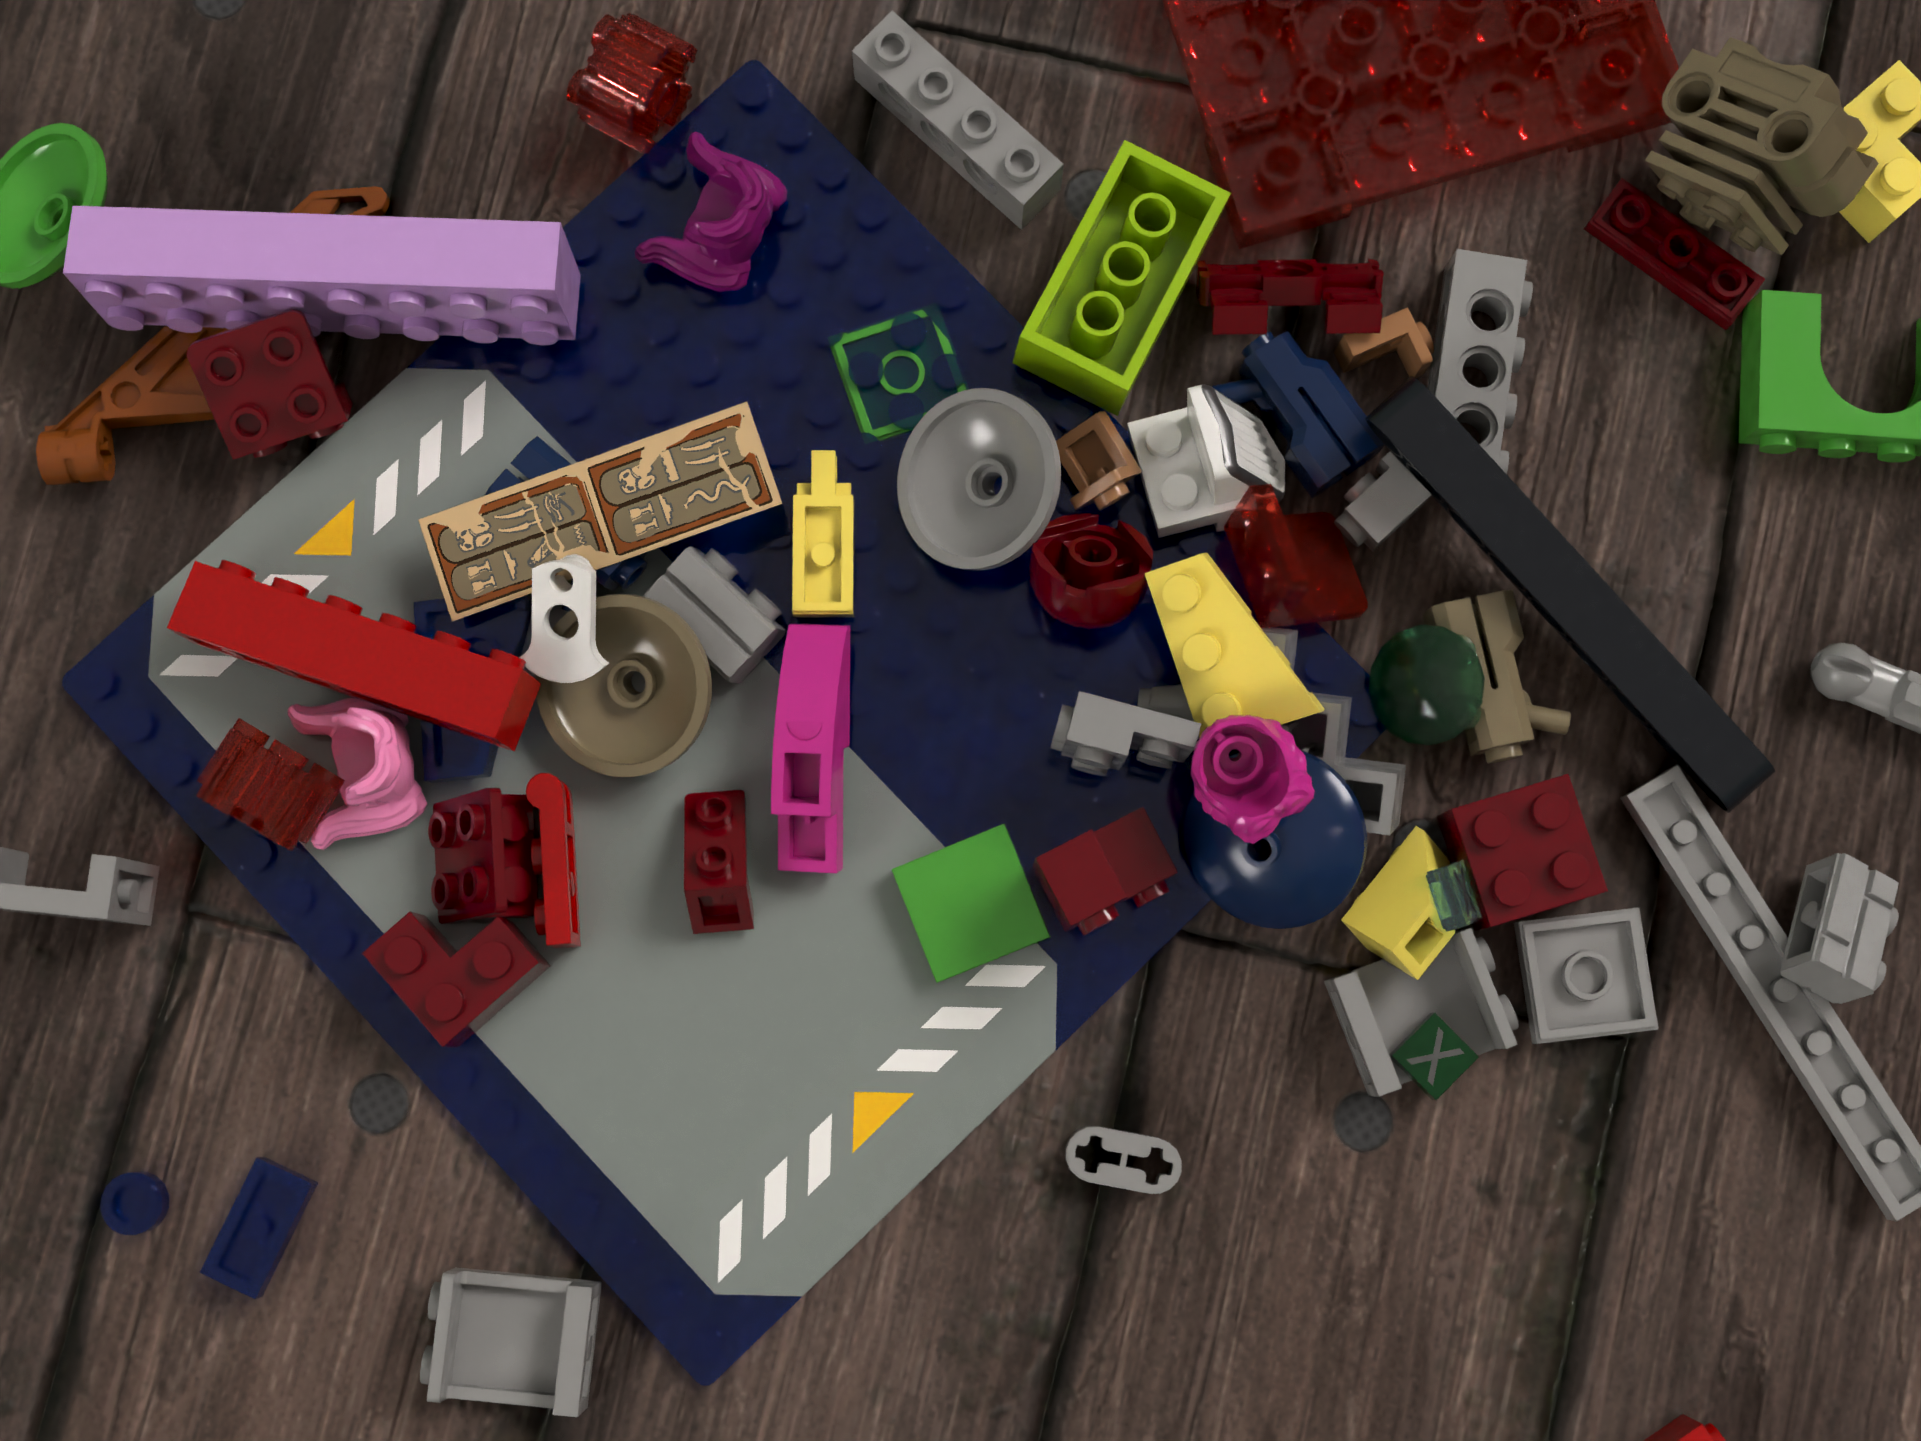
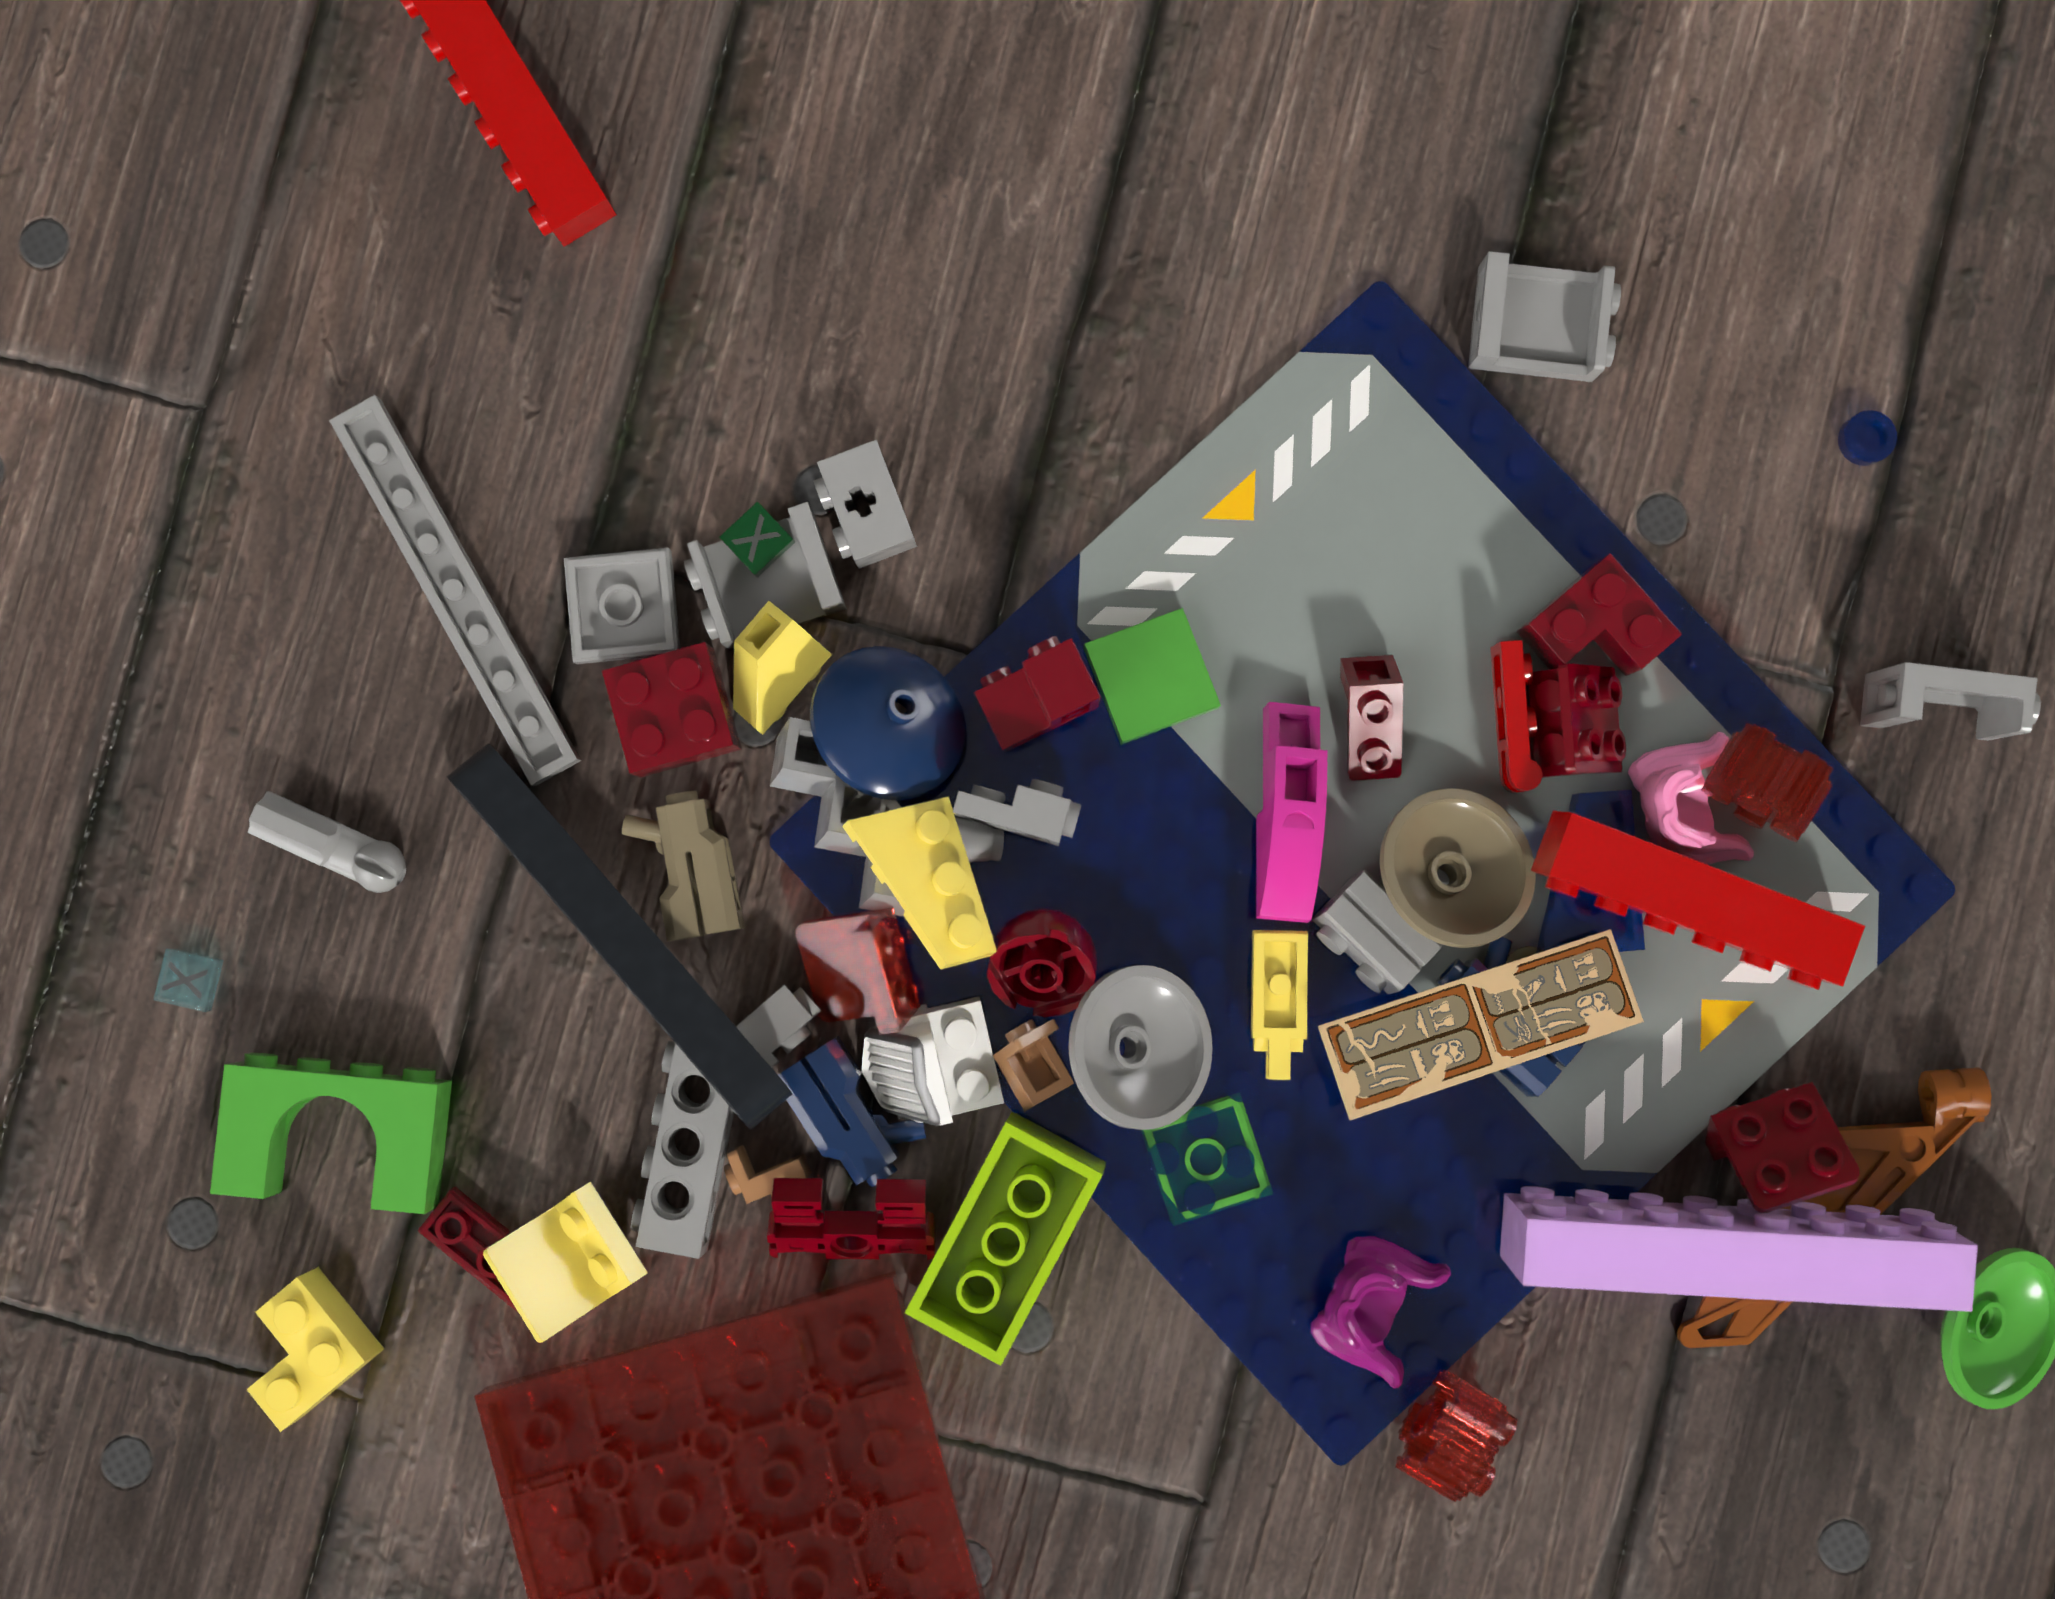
camera: 170 degrees left, 5 degrees up
(259, 1227) = (1760, 414): clear blue plate -> none
(555, 656) = (1521, 893): white piece -> none
(957, 120) = (1153, 1398): light grey brick -> none
(1119, 1174) = (1029, 447): light grey beam -> none
(1256, 786) = (910, 755): dark pink hair -> none
(1309, 1135) = (865, 474): none -> light grey brick
(1427, 685) = (747, 857): clear green dish -> none
(1453, 895) = (735, 669): clear light blue tile -> none
(1605, 242) = (564, 1263): none -> light yellow bracket
(1755, 144) = (418, 1349): dark tan piece -> none
(1840, 929) = (401, 637): light grey brick -> none

